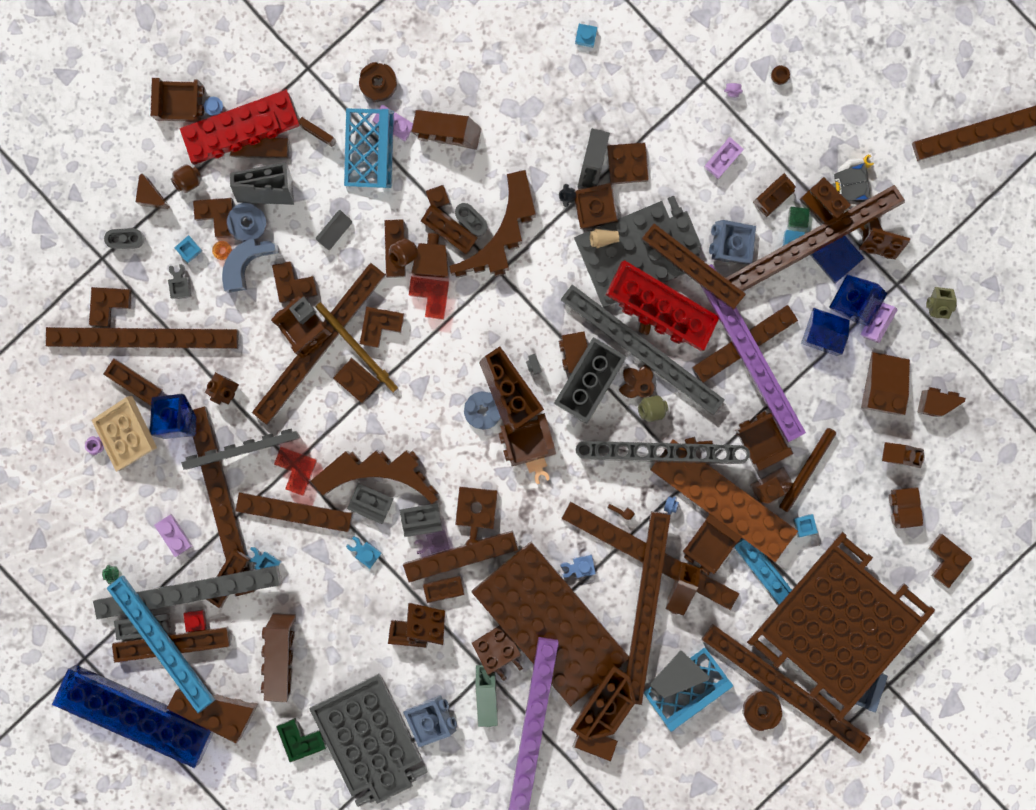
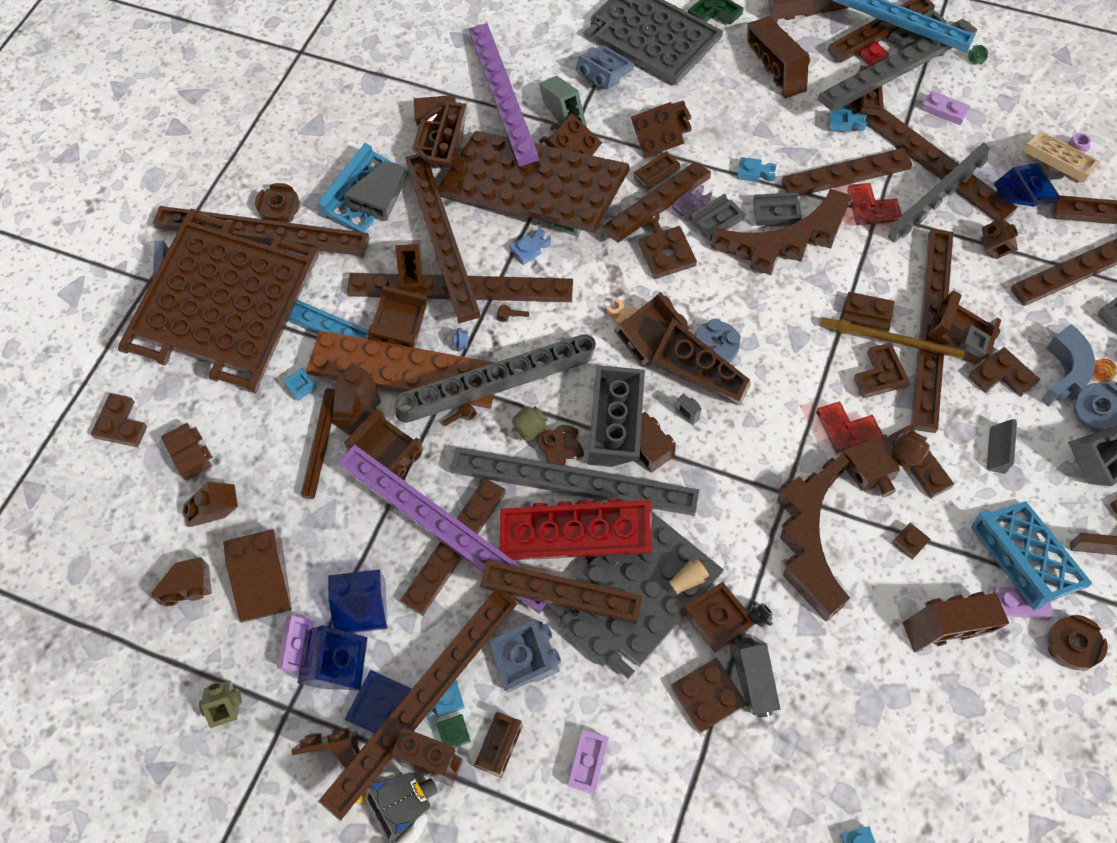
camera: 160 degrees right, 25 degrees down
(449, 229) = (874, 507): reddish brown plate -> none
(471, 219) = (856, 530): dark grey plate -> none

